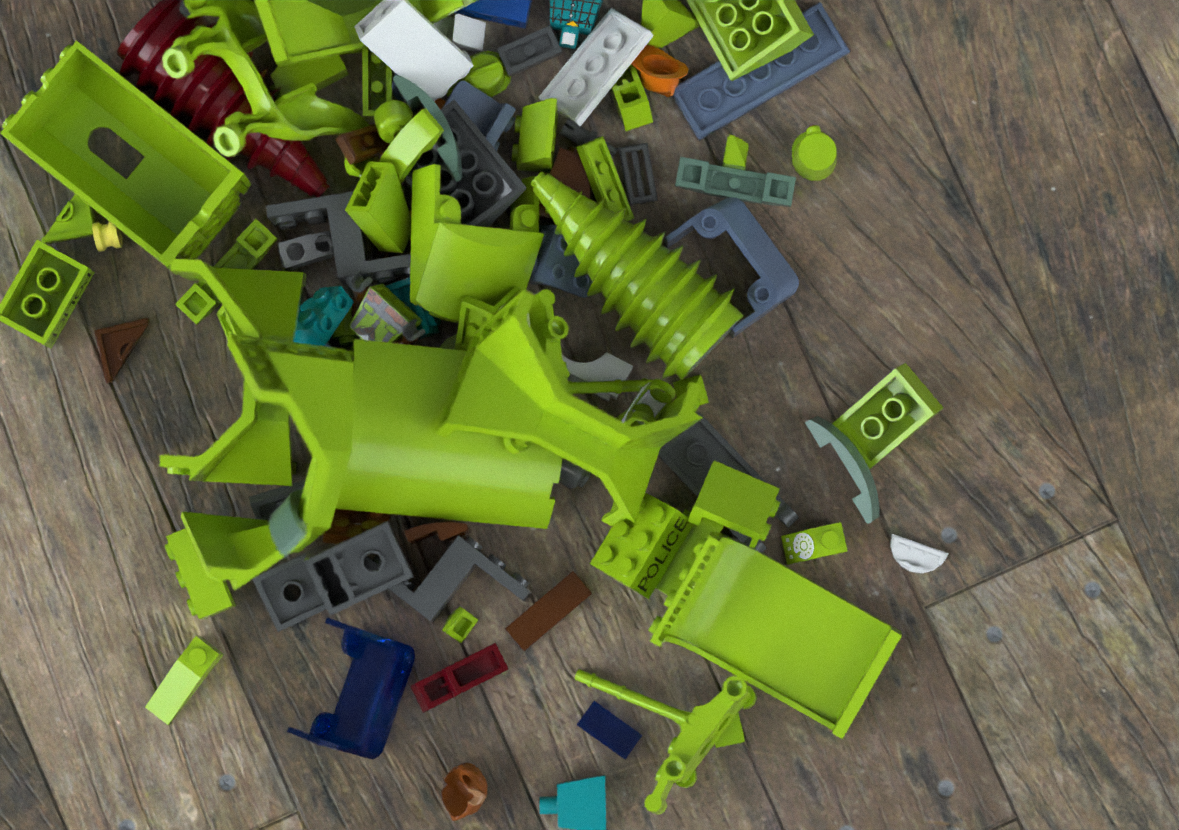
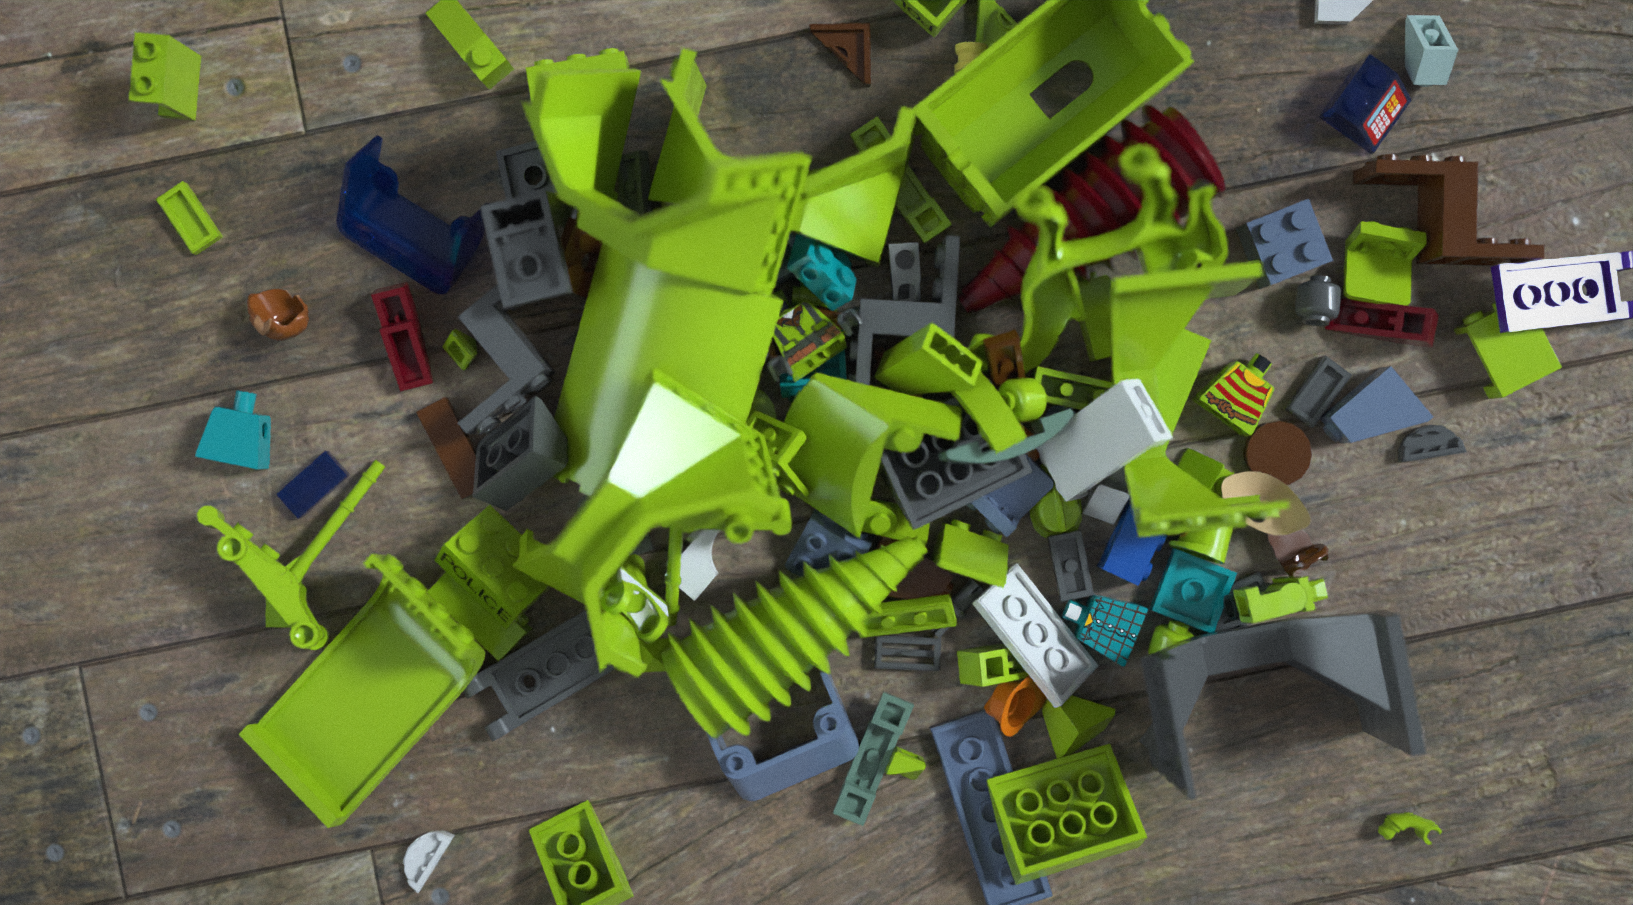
camera: 105 degrees right, 5 degrees up
(285, 524) = (576, 172): sand green slope -> none
(446, 531) = (558, 356): reddish brown slope -> none
(540, 545) = (519, 456): none -> dark grey slope
(736, 502) = (514, 679): lime panel -> none
(814, 154) = (885, 851): lime hat -> none
(814, 543) = (459, 752): lime slope -> none
(826, 433) = (573, 795): sand green slope -> none

